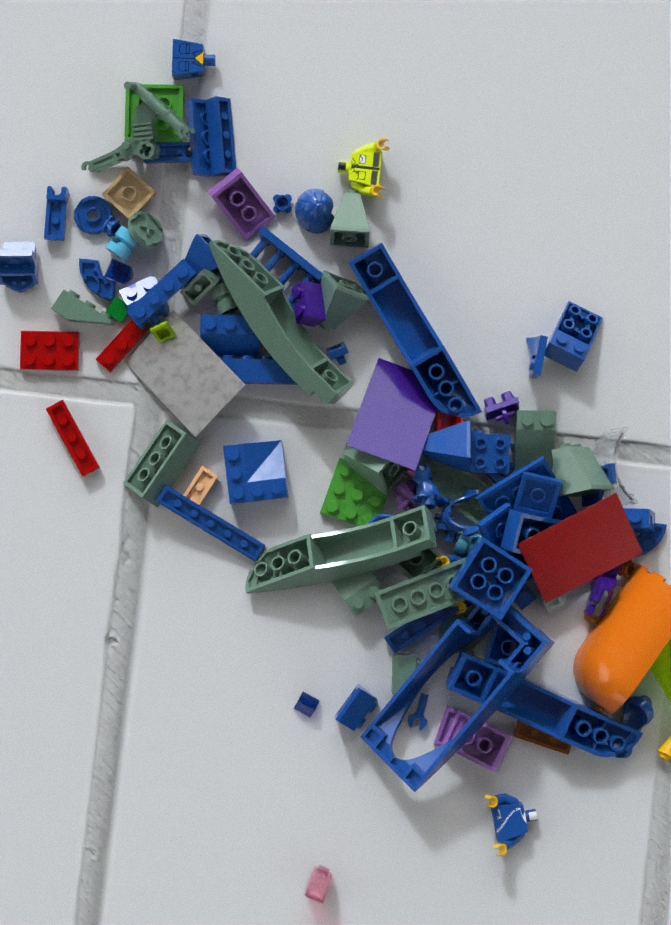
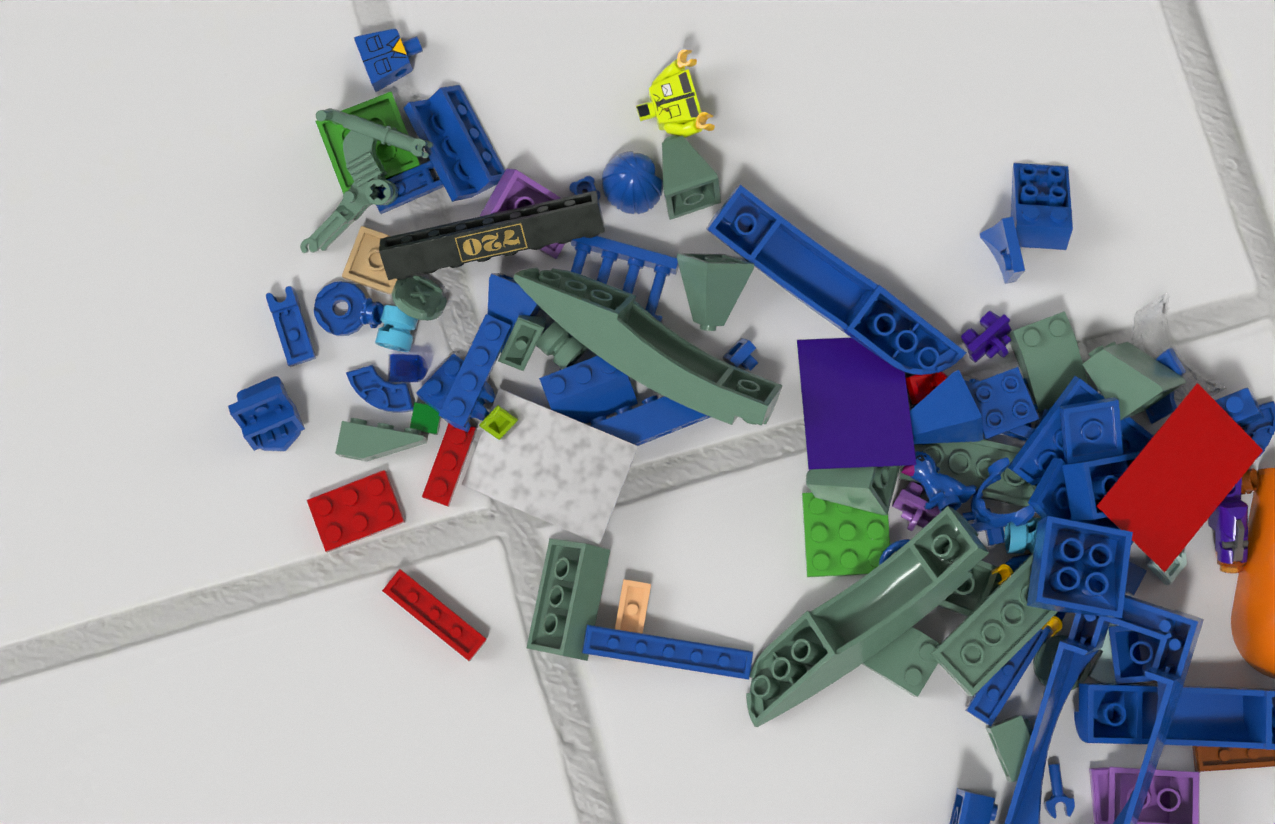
camera: 15 degrees left, 5 degrees down
(208, 209) = (492, 236): none -> pearl dark grey brick
(255, 472) = (699, 558): blue slope -> none
(308, 303) = (676, 305): dark purple brick -> none

